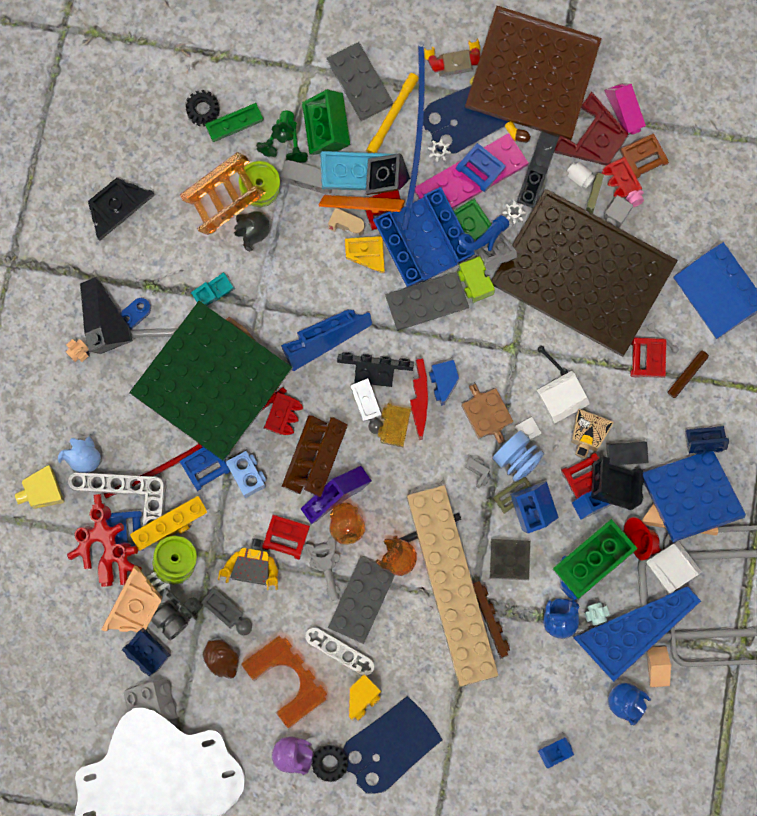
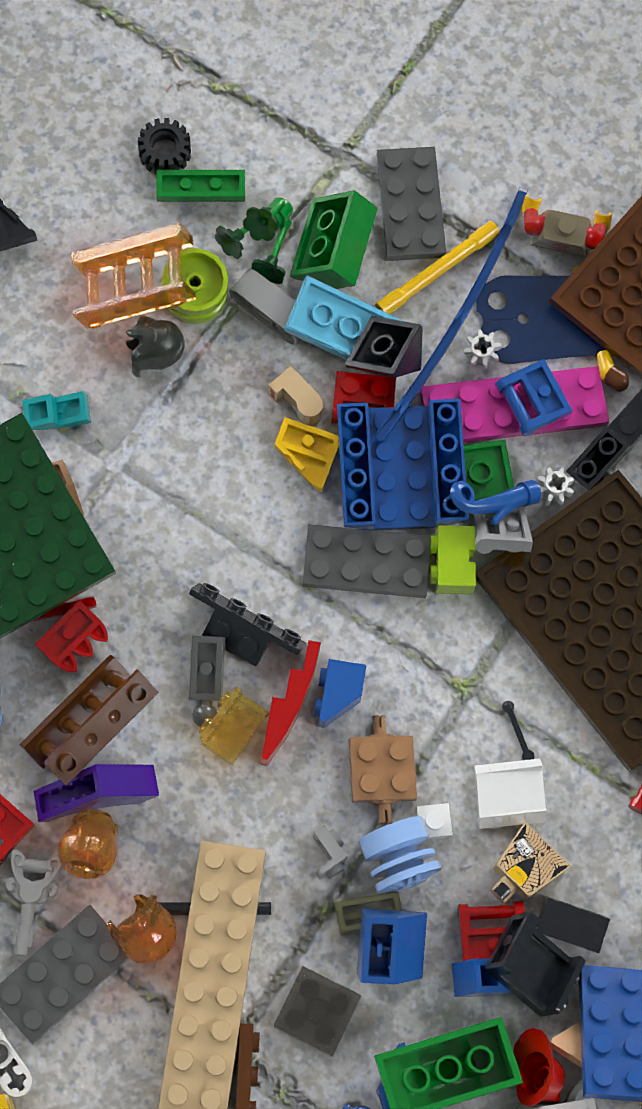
camera: 15 degrees right, 5 degrees down
(324, 336) = (188, 549): blue wedge -> none
(363, 203) = (336, 377): orange piece -> none

